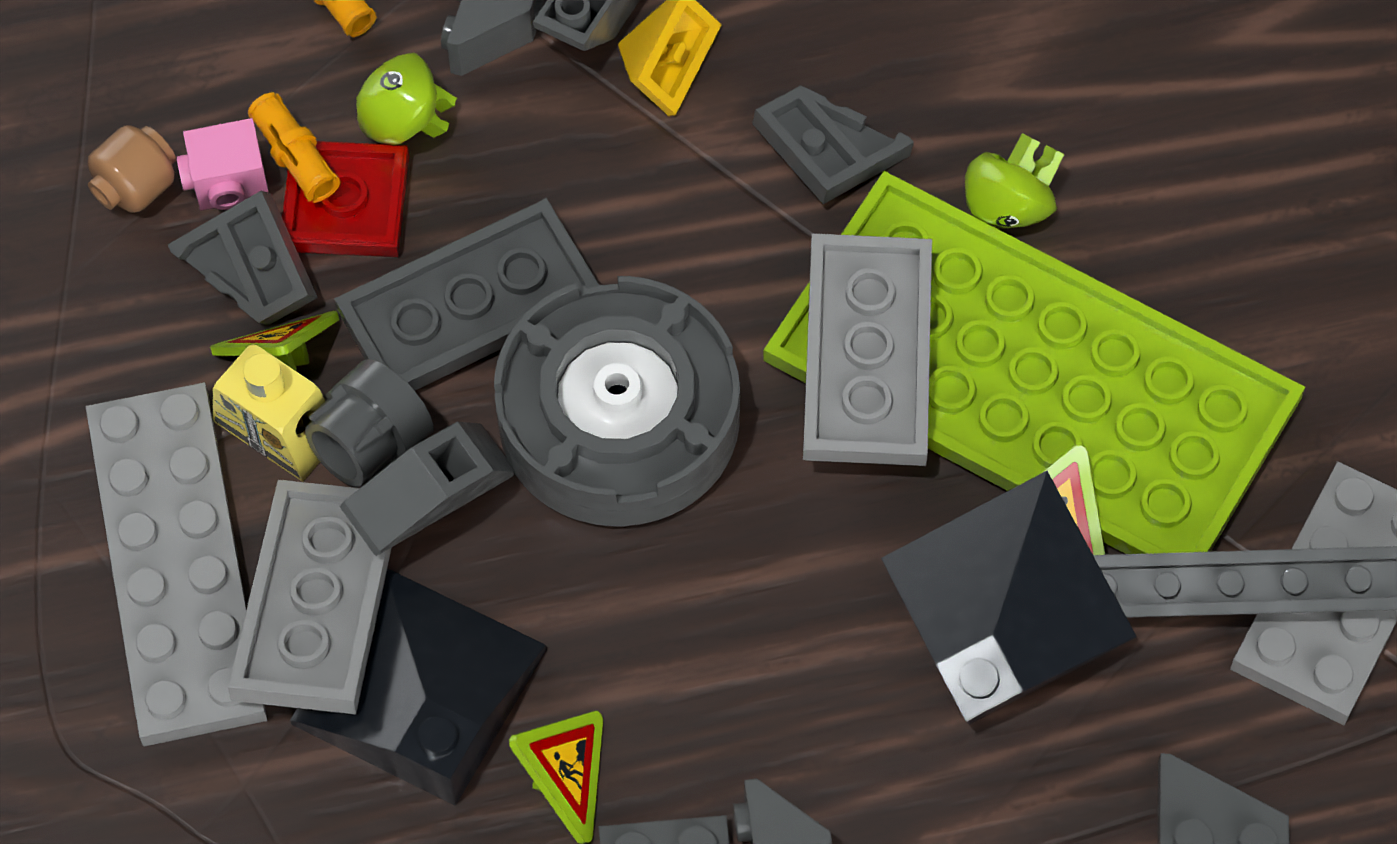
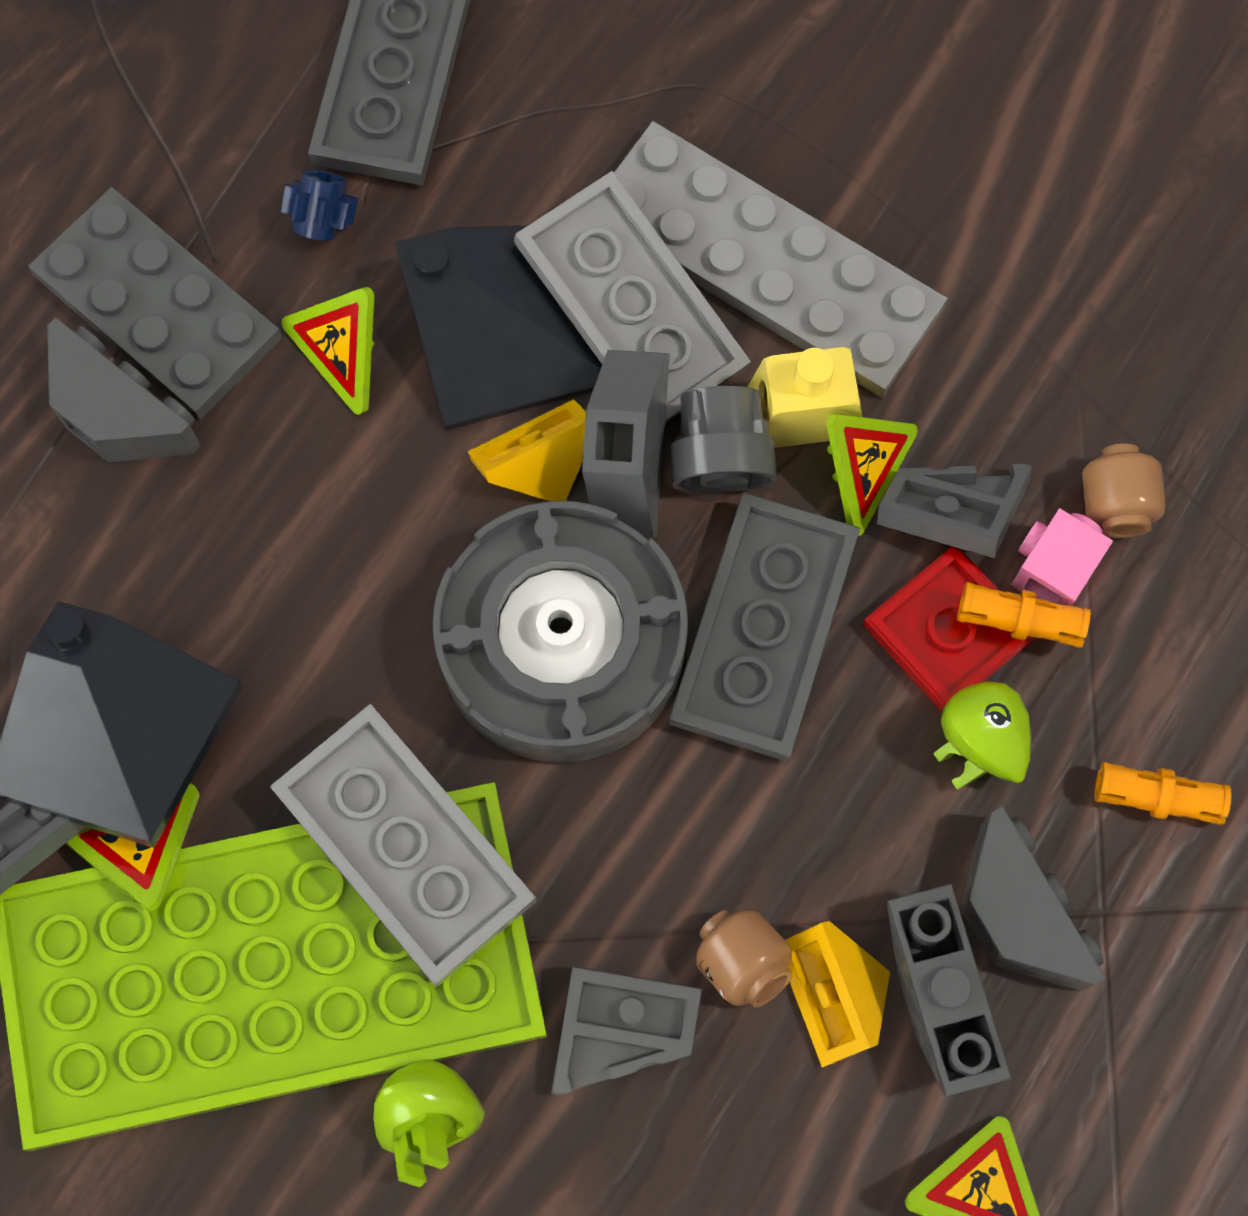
camera: 135 degrees right, 10 degrees up
(497, 562) = (538, 455): none -> yellow slope
(707, 110) = (744, 957): none -> medium nougat head

